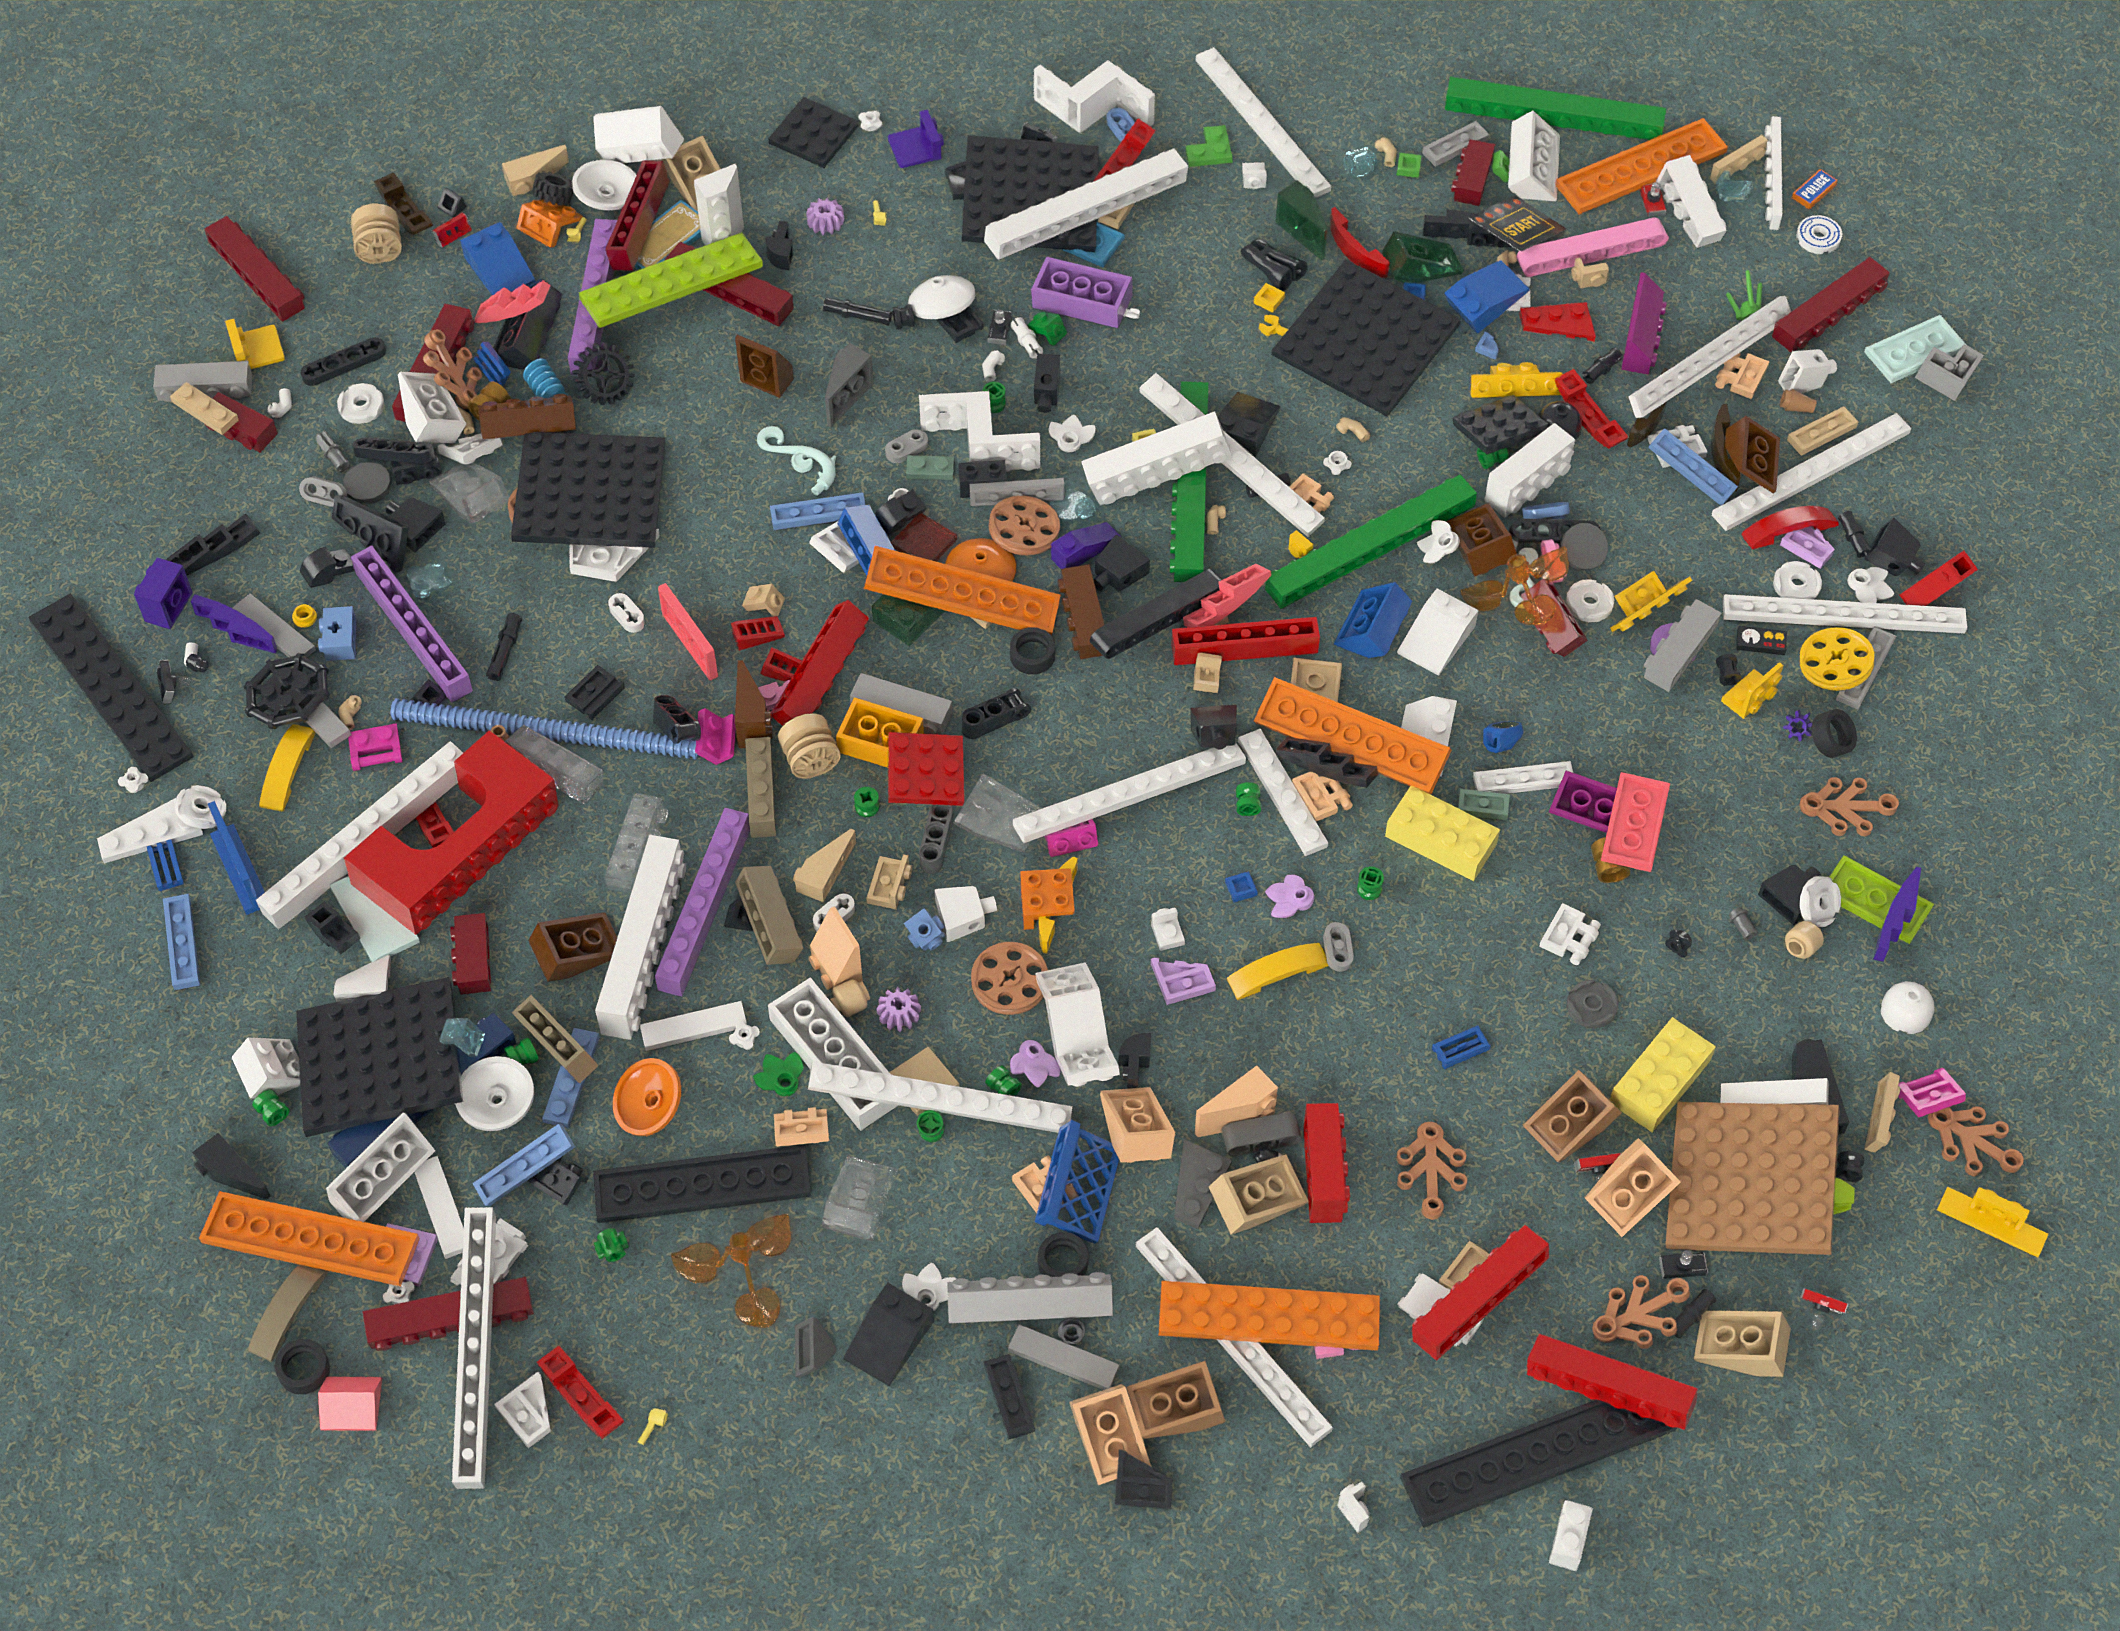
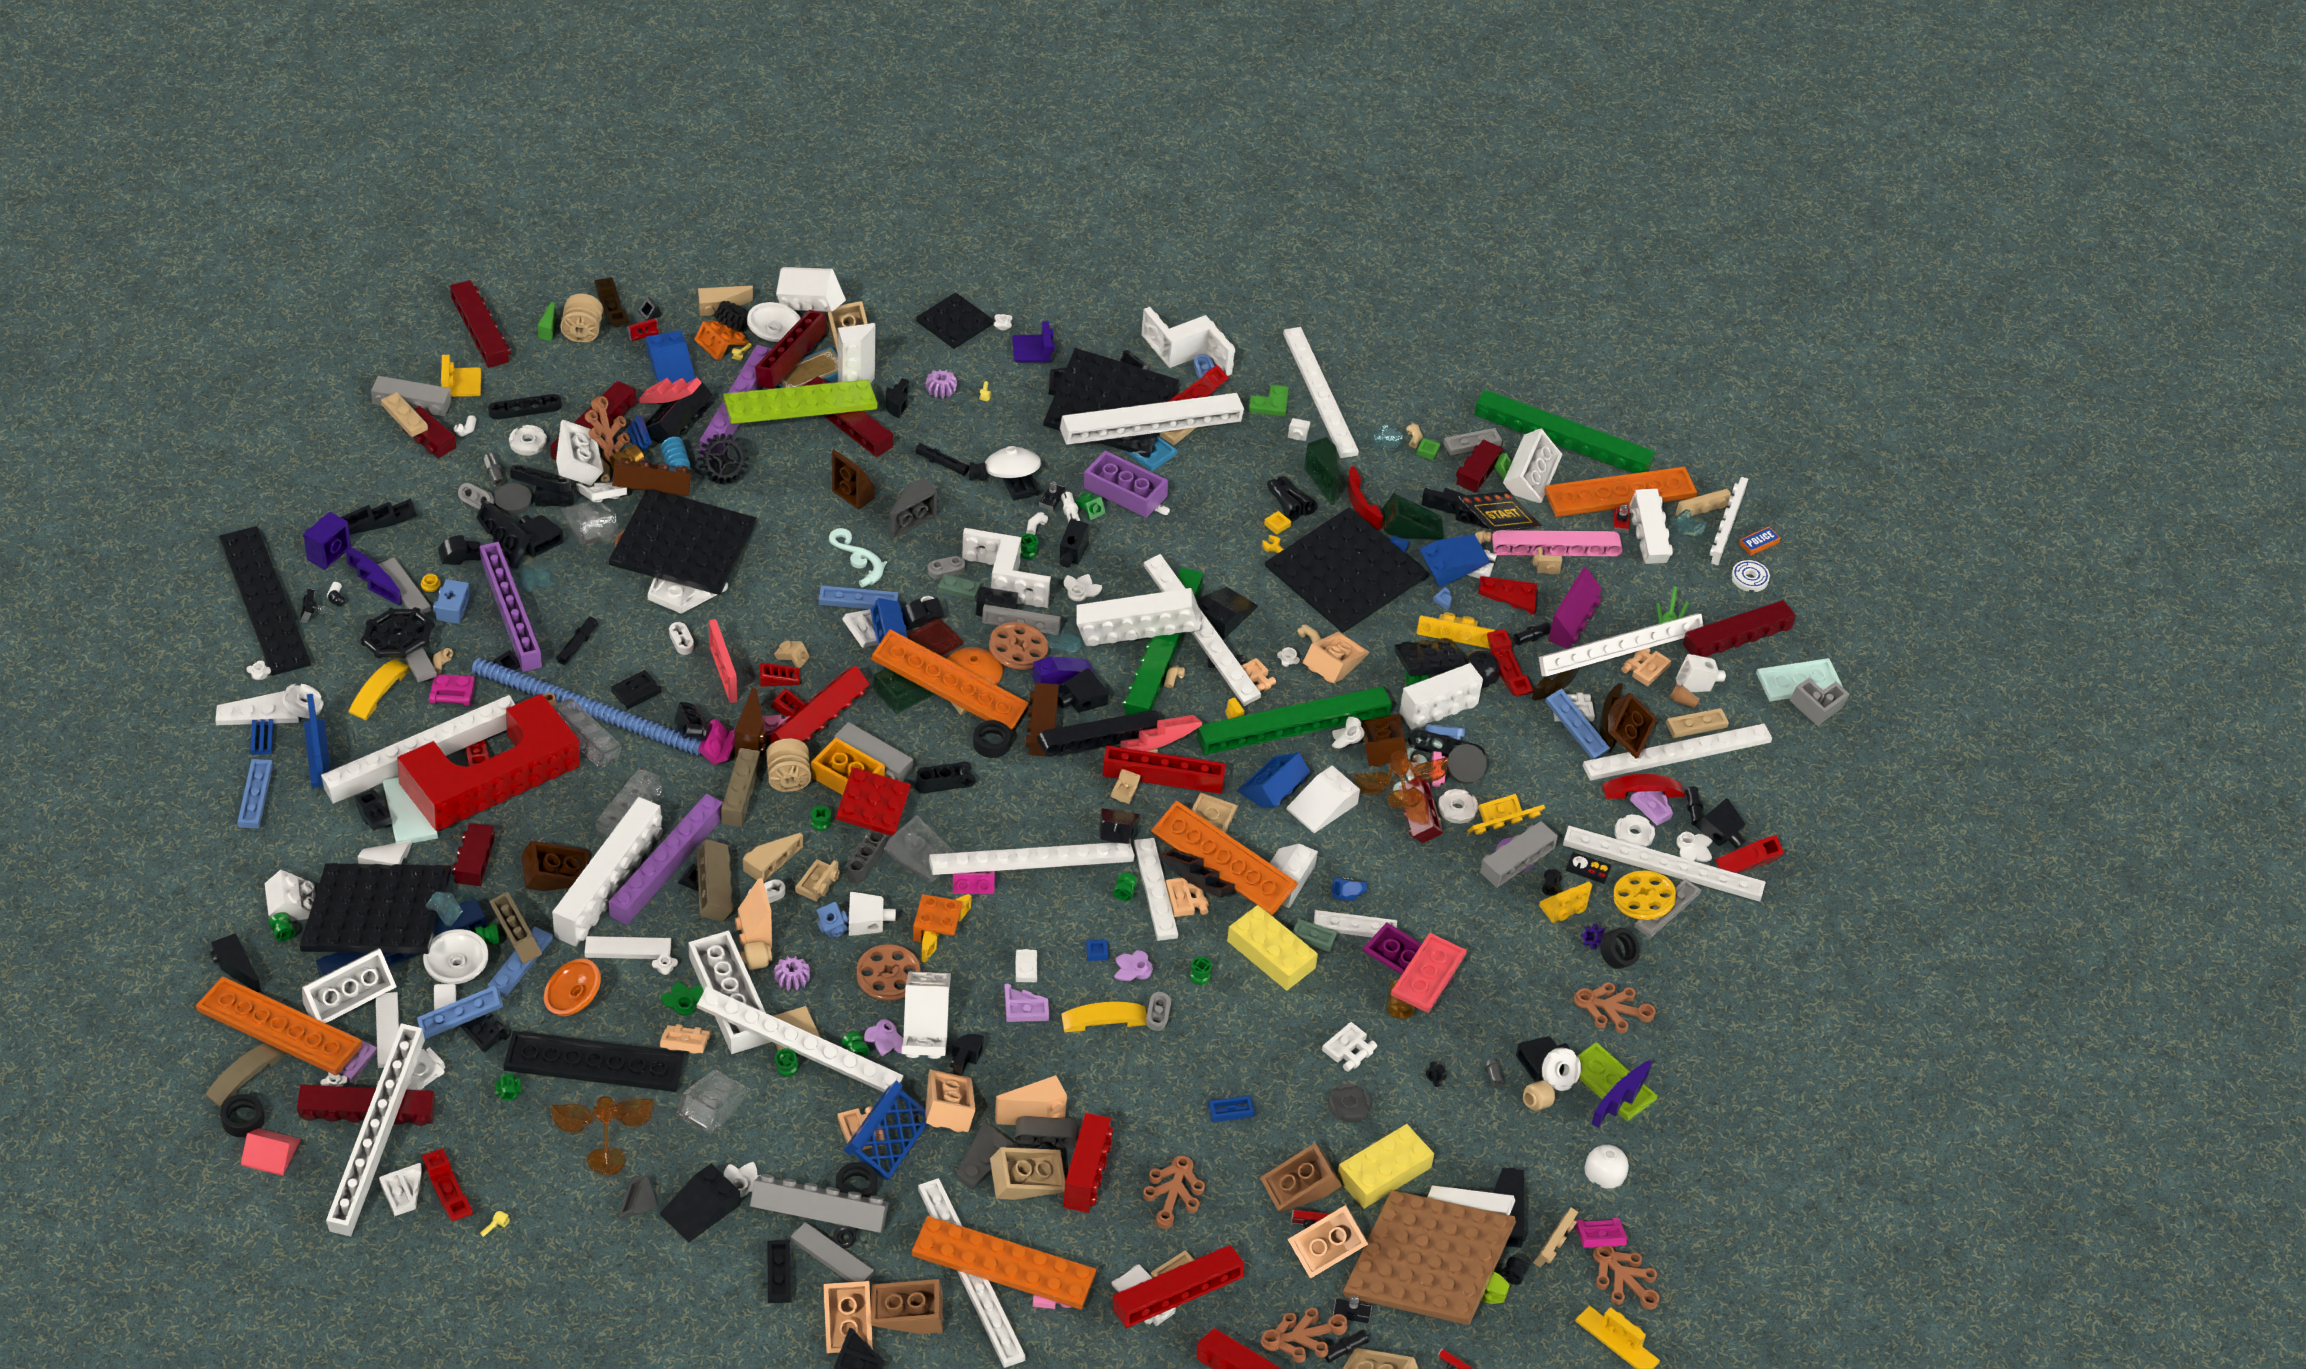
camera: 10 degrees right, 10 degrees down
(335, 250) = (547, 323): none -> bright green slope
(496, 1147) = (444, 995): none -> white slope
(1390, 450) = (1334, 657): none -> light nougat slope

